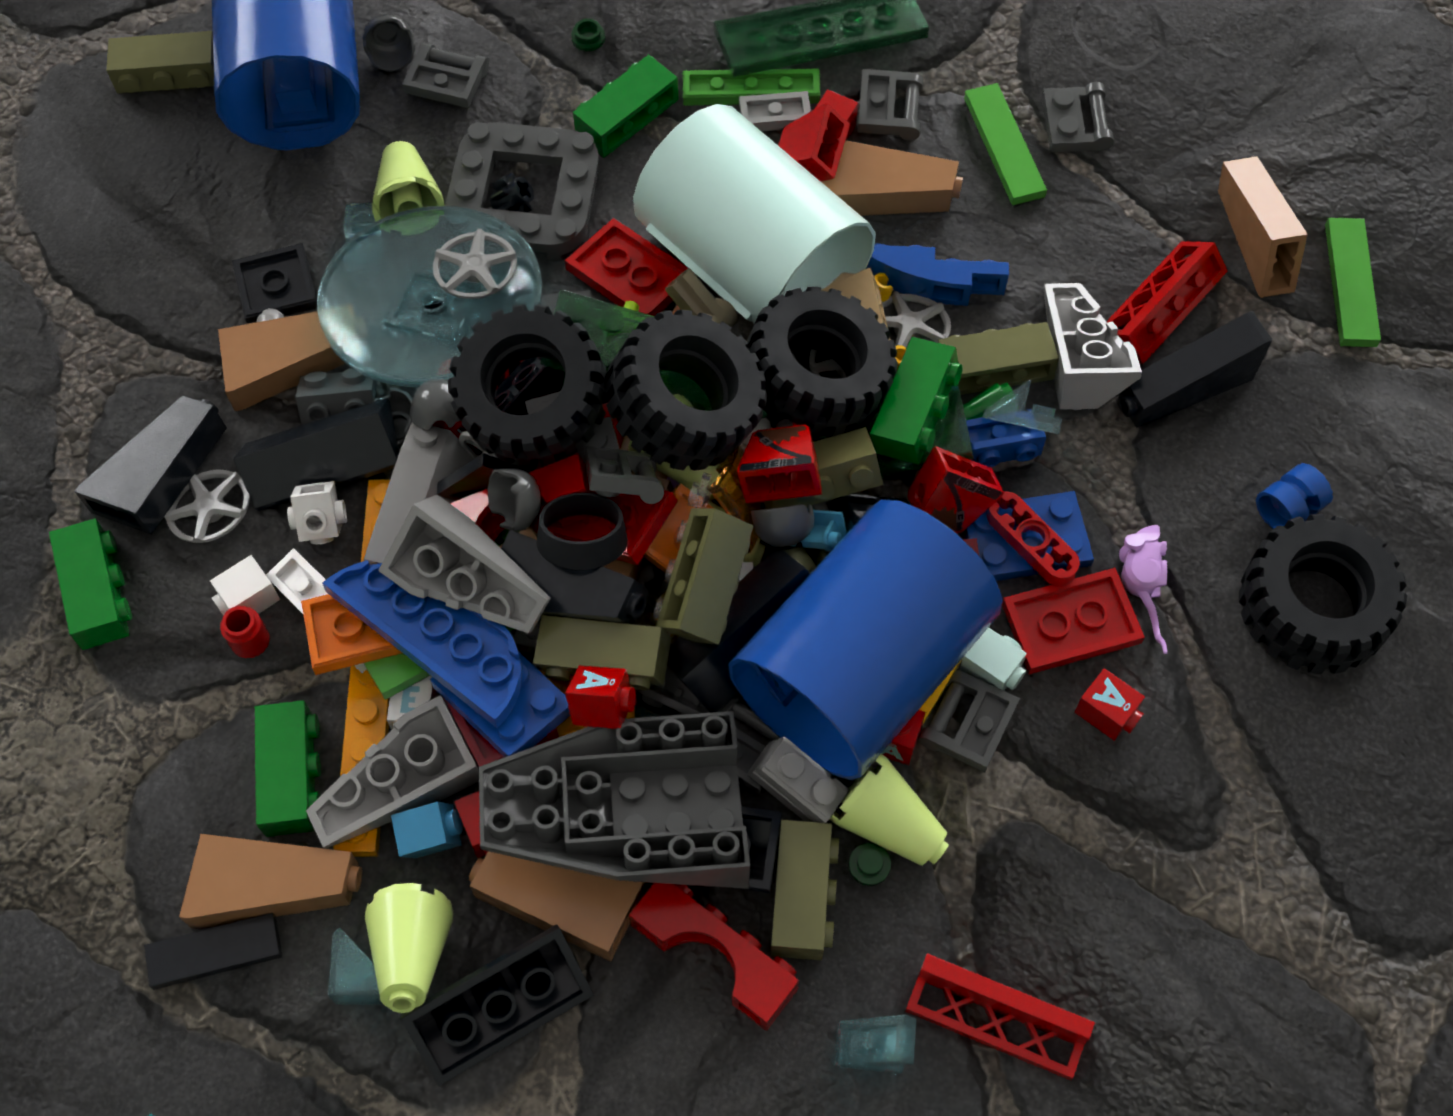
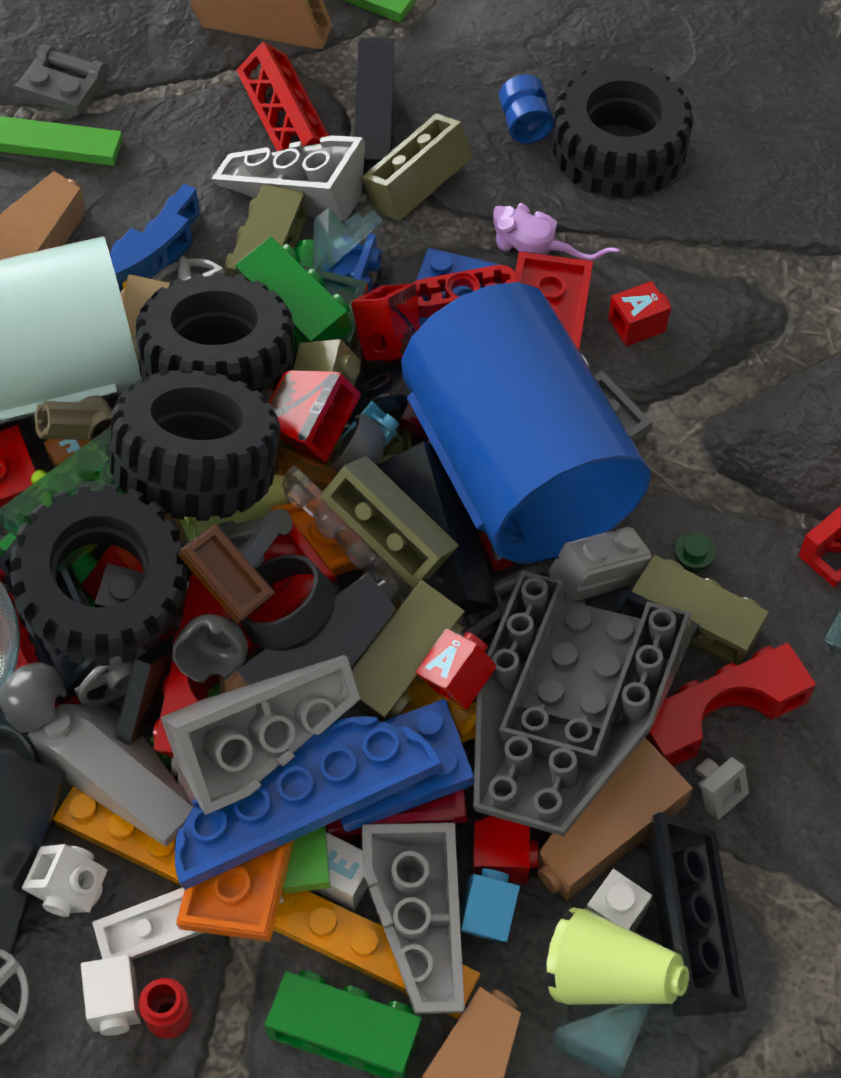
camera: 65 degrees left, 5 degrees down
(472, 935) = (620, 901): none -> white brick
(565, 470) = (226, 573): none -> reddish brown tile
(632, 981) = (722, 785): none -> light grey tile
(891, 815) = (672, 509): yellowish green cone -> none
(1156, 437) = (417, 166): none -> olive brick

